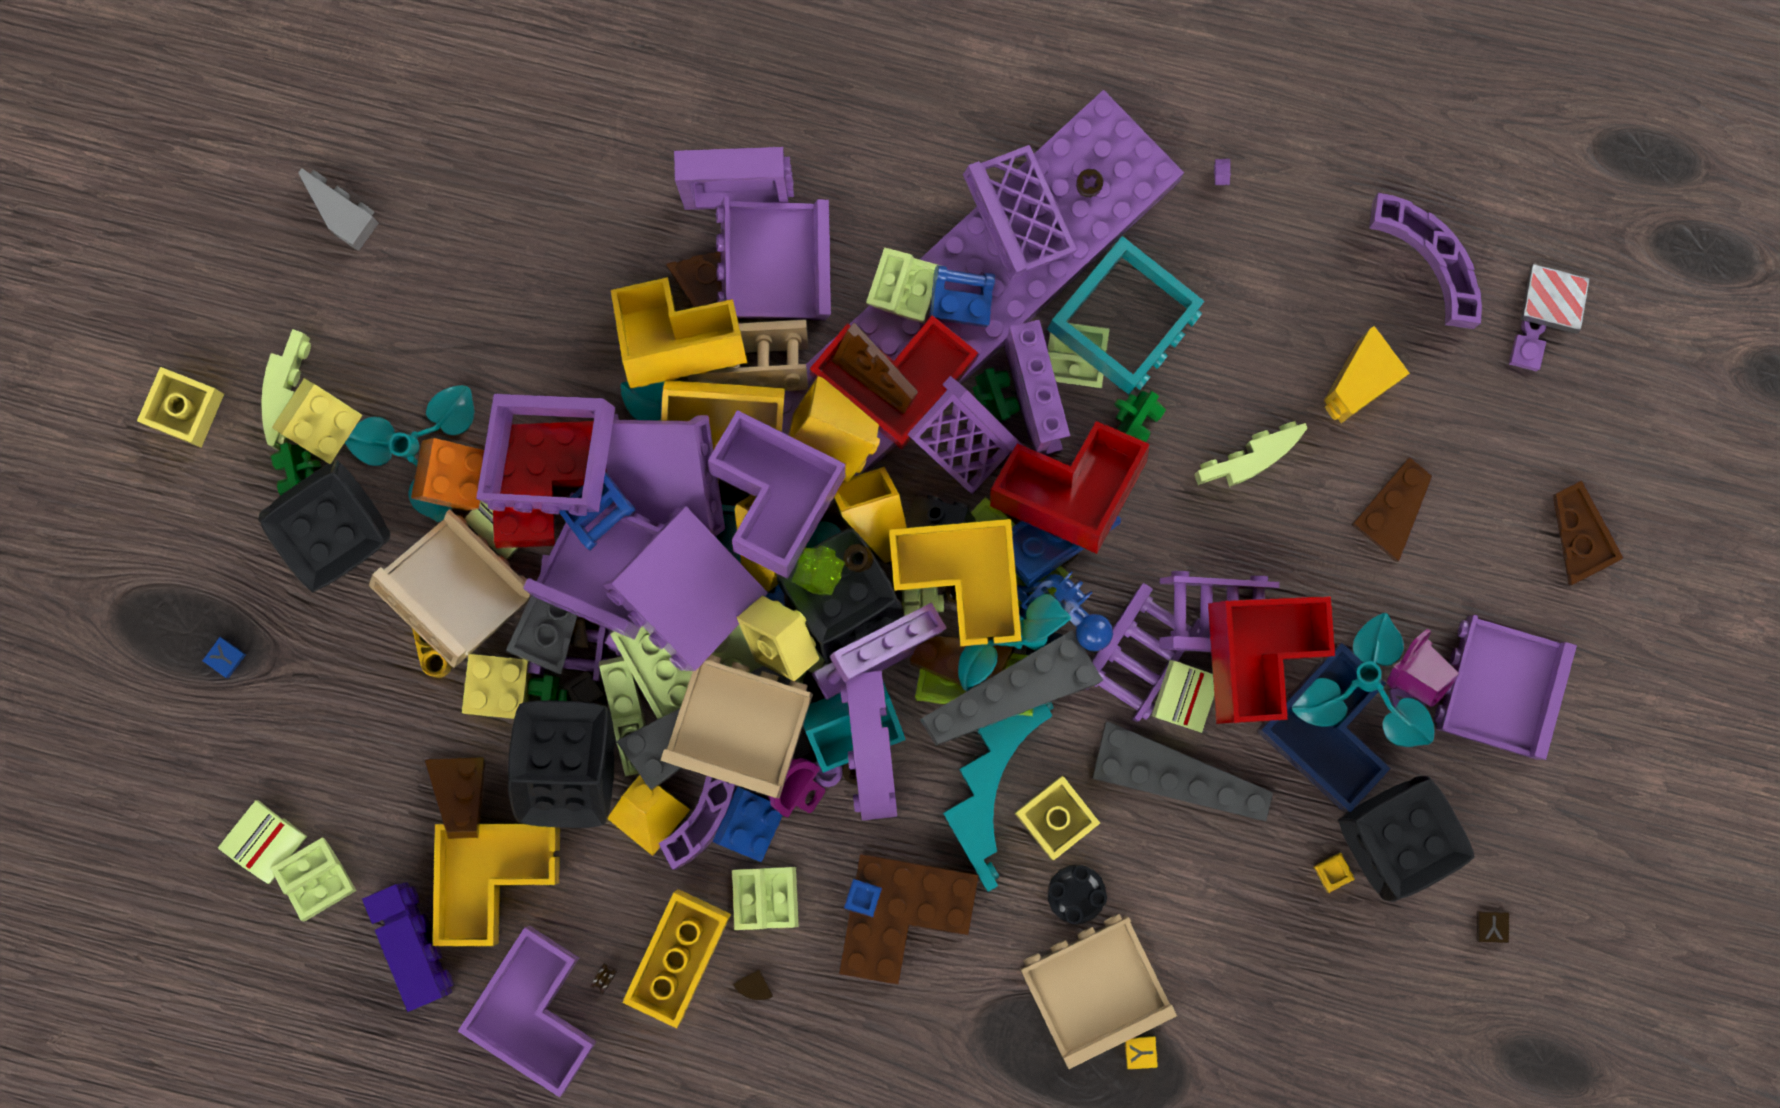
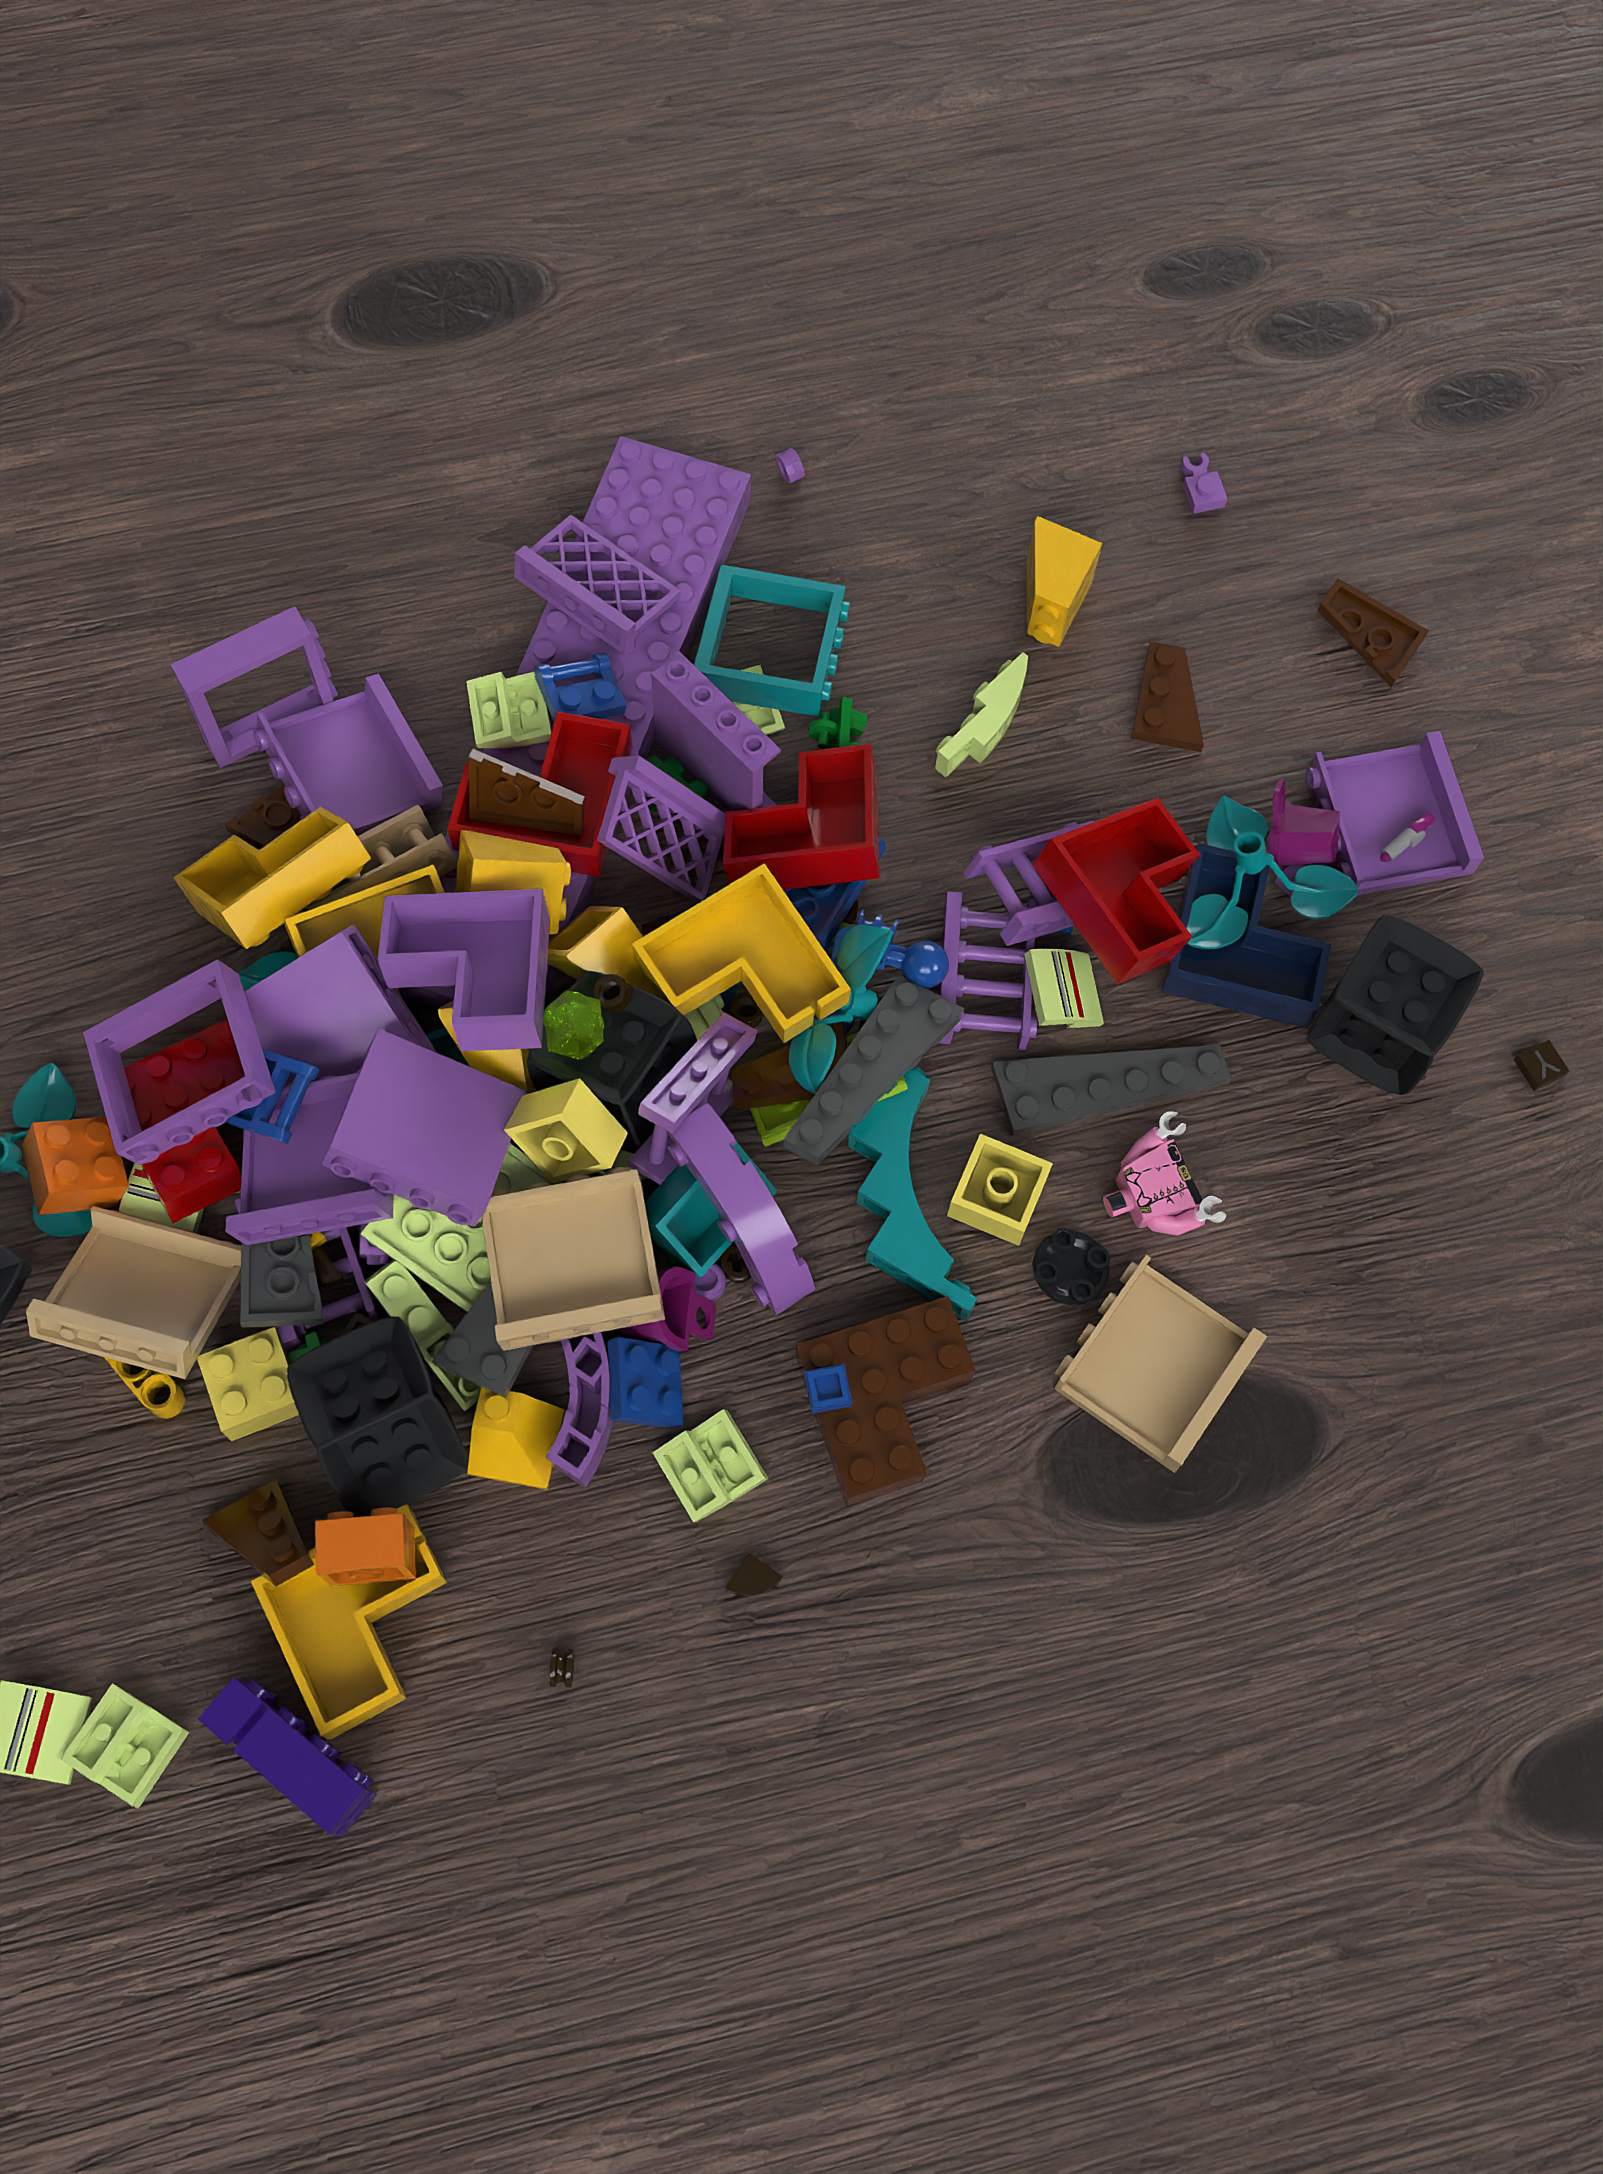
camera: 30 degrees left, 15 degrees down
(512, 849) = (365, 1548): none -> orange brick
(514, 1016) = (469, 1771): medium lavender piece -> none
(676, 958) = (640, 1589): yellow brick -> none
(1090, 192) = (663, 528): dark brown bush -> none
(1141, 1052) = (1250, 1408): yellow tile -> none
(1168, 872) = (1159, 1186): none -> bright pink torso
(1334, 872) = (1337, 1097): yellow tile -> none
(1439, 249) = (1055, 431): medium lavender brick -> none
(1503, 712) = (1409, 837): none -> light grey piece
(1555, 299) = (1200, 429): tile -> none

